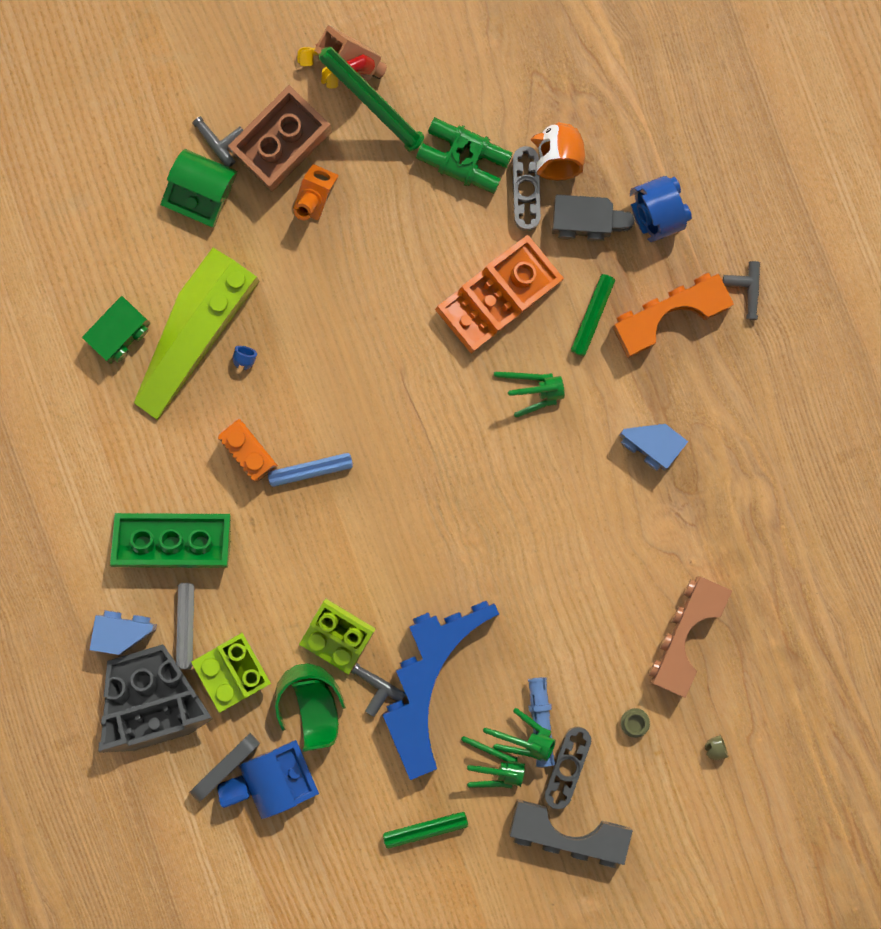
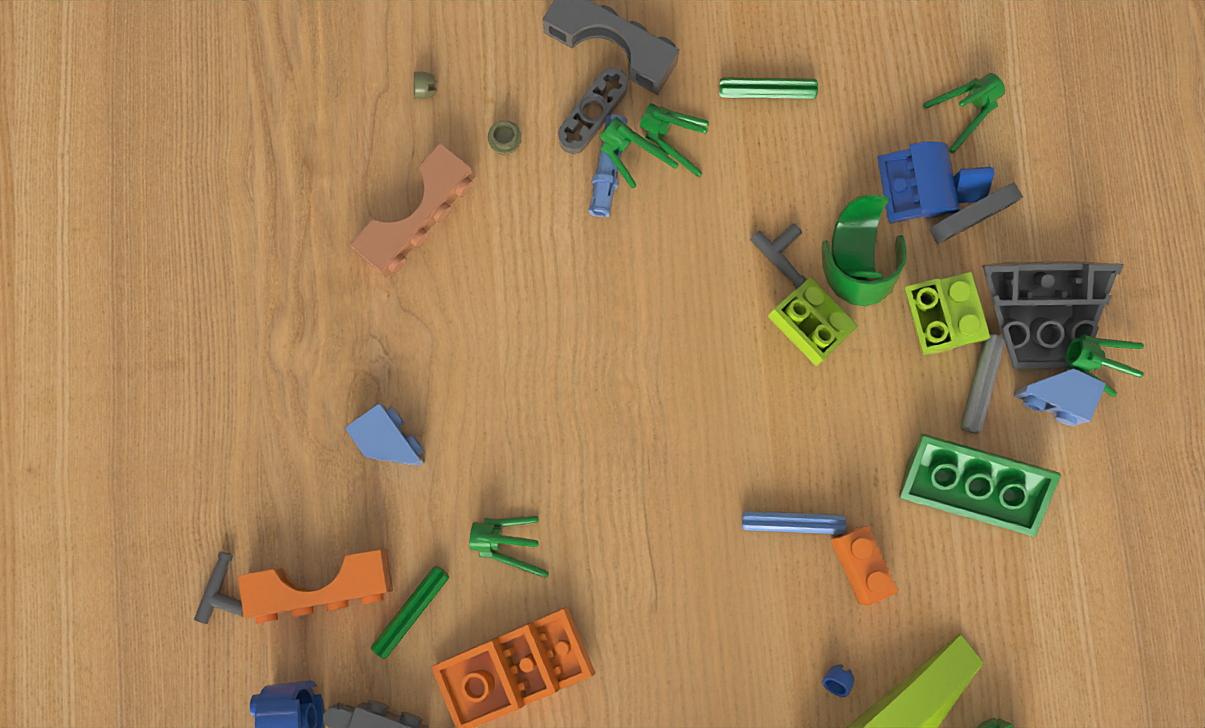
camera: 165 degrees left, 5 degrees down
(109, 667) = (1086, 355): none -> green plant
(242, 876) = (981, 93): none -> green plant
(410, 721) = (703, 284): blue arch -> none

